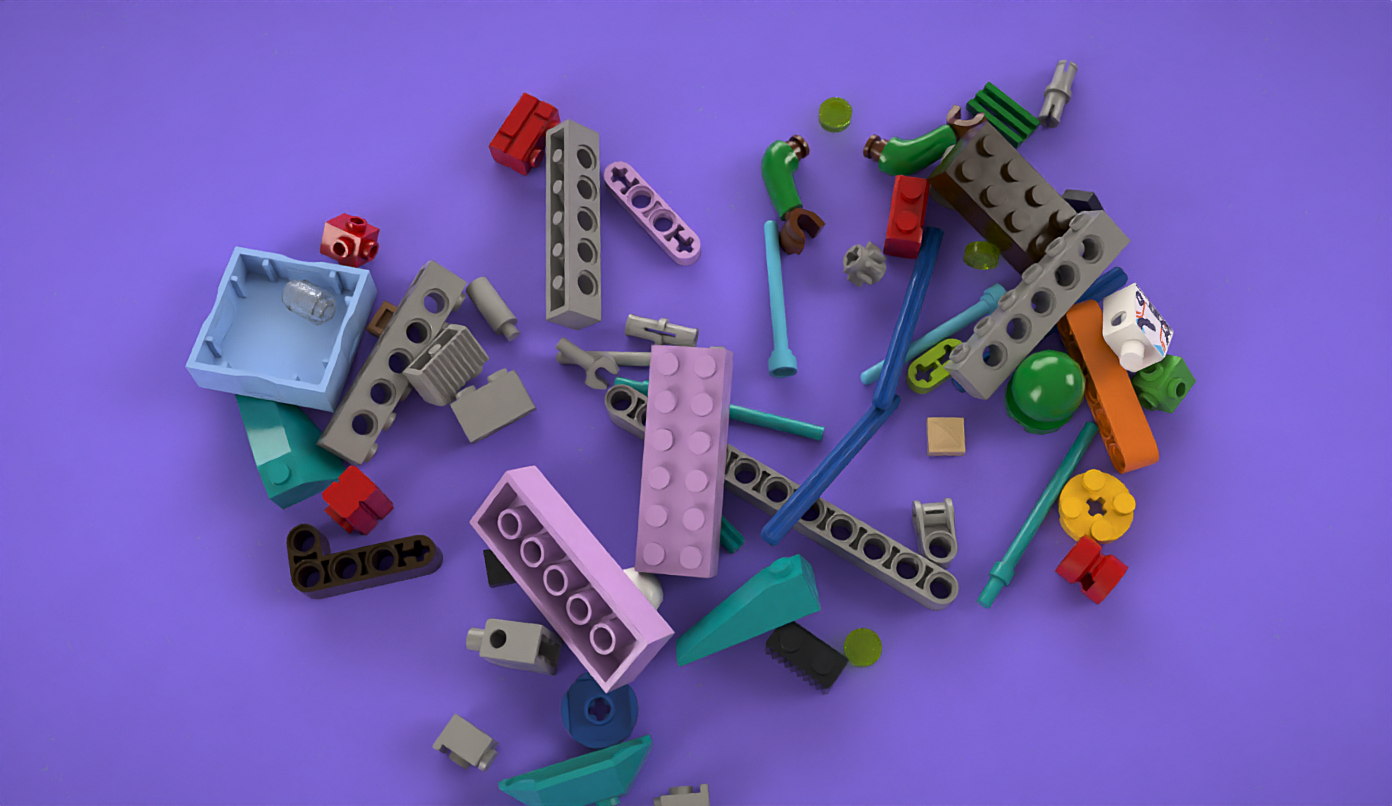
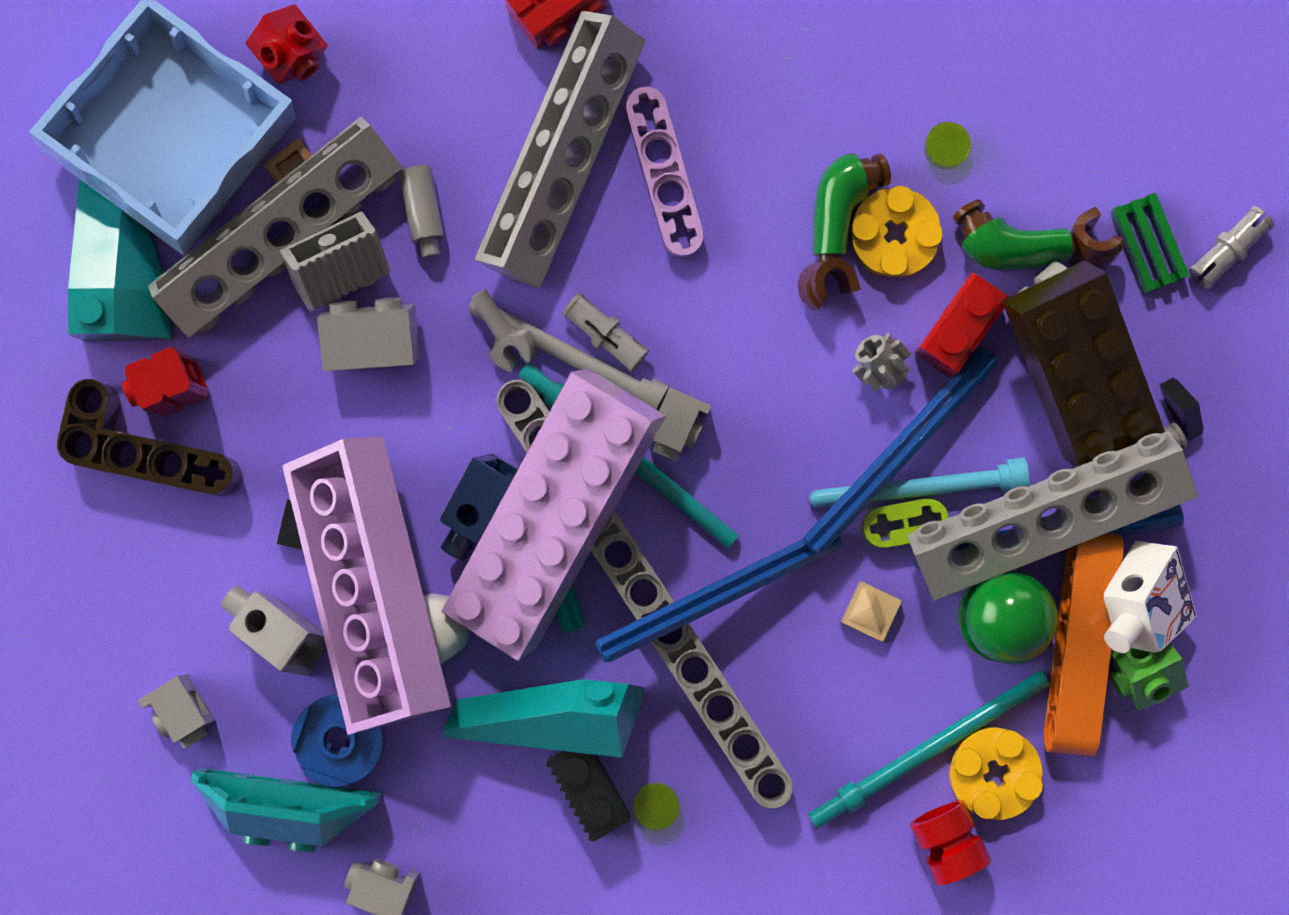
camera: 20 degrees right, 15 degrees up
(309, 301) = (208, 103): clear brick -> none
(623, 471) = (480, 487): none -> dark blue torso
(746, 368) = (680, 424): none -> light grey brick
(781, 362) = (729, 431): medium azure piece -> none
(836, 199) = (921, 234): none -> yellow plate
(935, 526) = (802, 715): light grey piece -> none
(981, 255) = (1026, 414): clear neon green tile -> none

